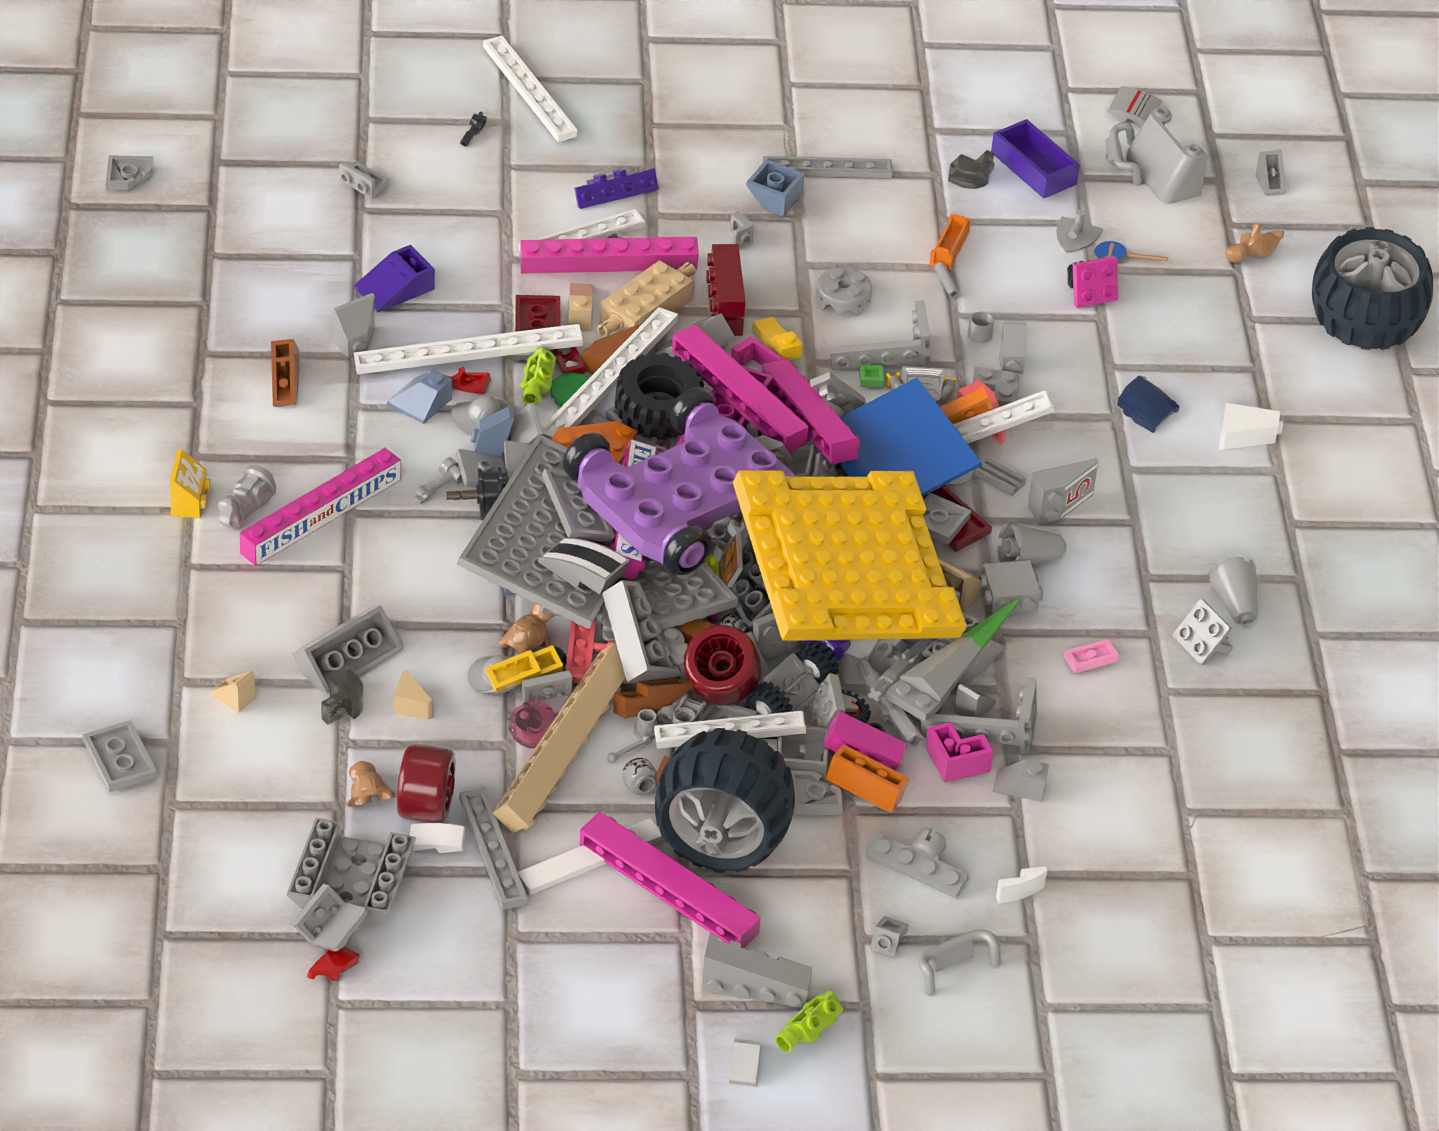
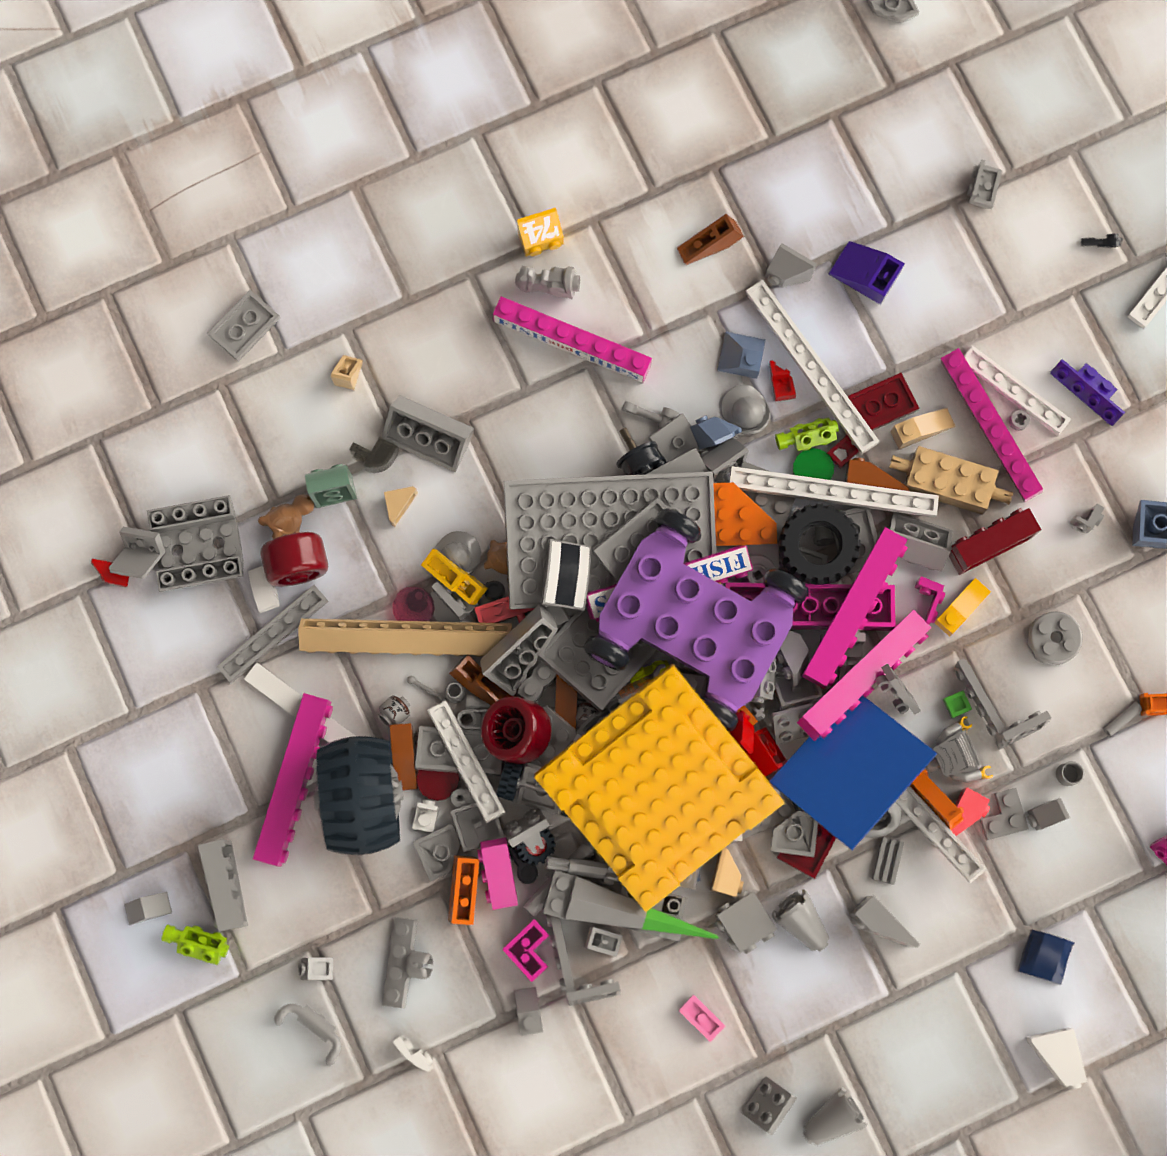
camera: 70 degrees right, 35 degrees up
(361, 726) = (330, 485): none -> sand green brick

